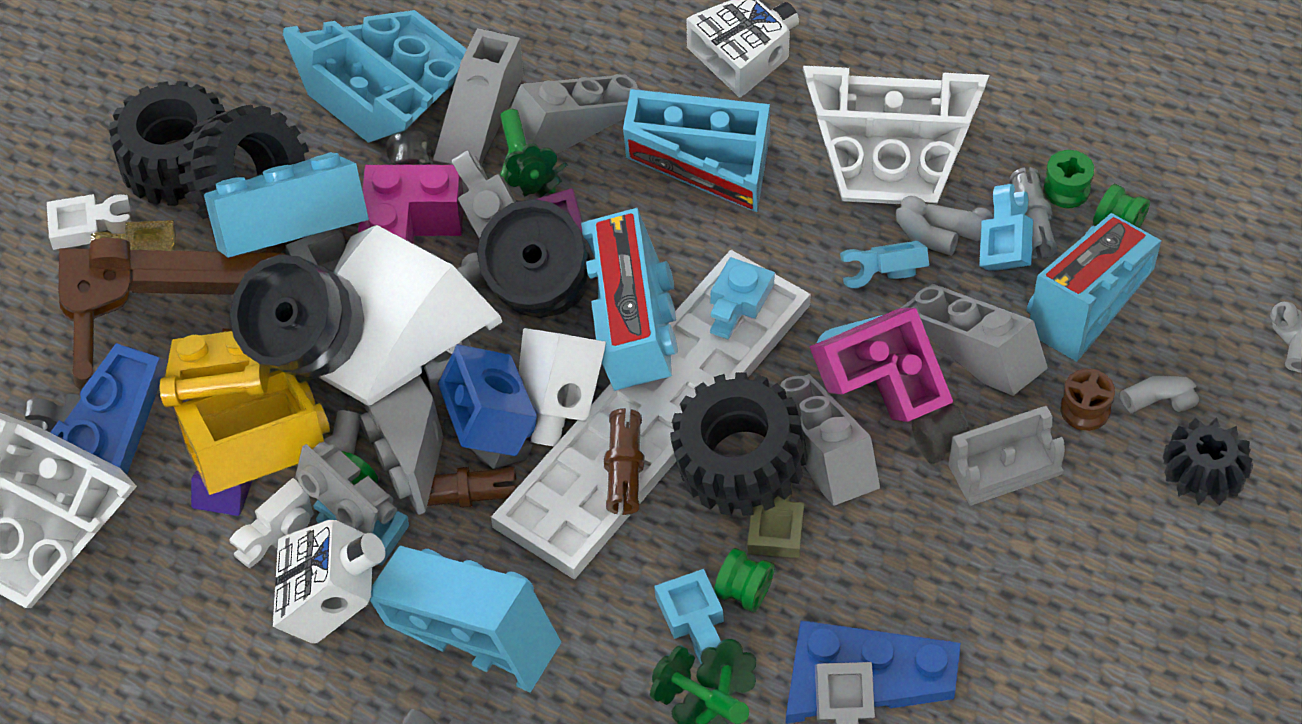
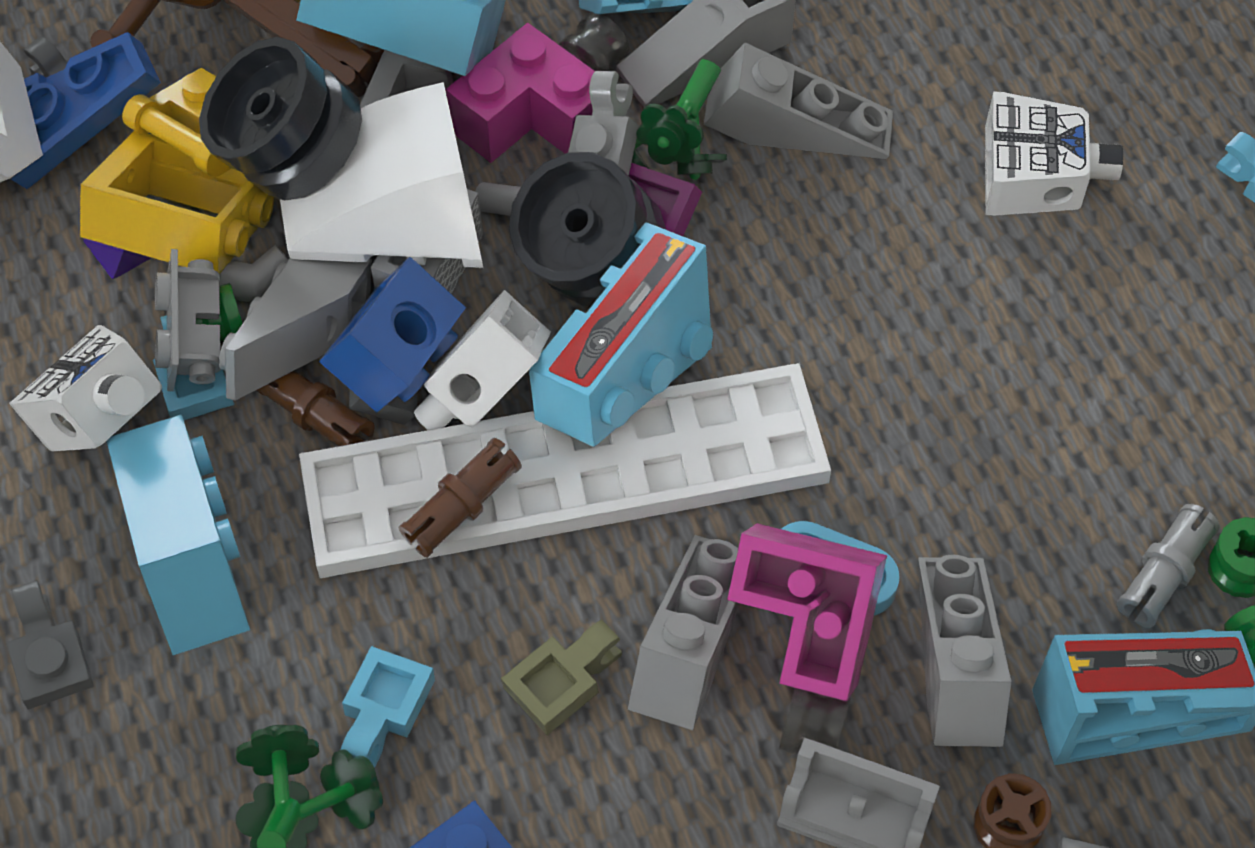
camera: 40 degrees right, 5 degrees up
(278, 516) = (122, 305): white plate -> none
(701, 142) = (883, 232): medium azure wedge -> none
(734, 408) = (560, 524): black tyre -> none
(738, 292) = (754, 411): medium azure plate -> none
(744, 580) = (461, 712): green wheel -> none
(892, 132) = (1094, 363): white wedge -> none
(896, 260) = (961, 501): medium azure plate -> none
(918, 229) = (1023, 494): light grey arm -> none
(963, 222) = (1071, 511): light grey arm -> none
(1007, 237) = (1108, 566): medium azure plate -> none

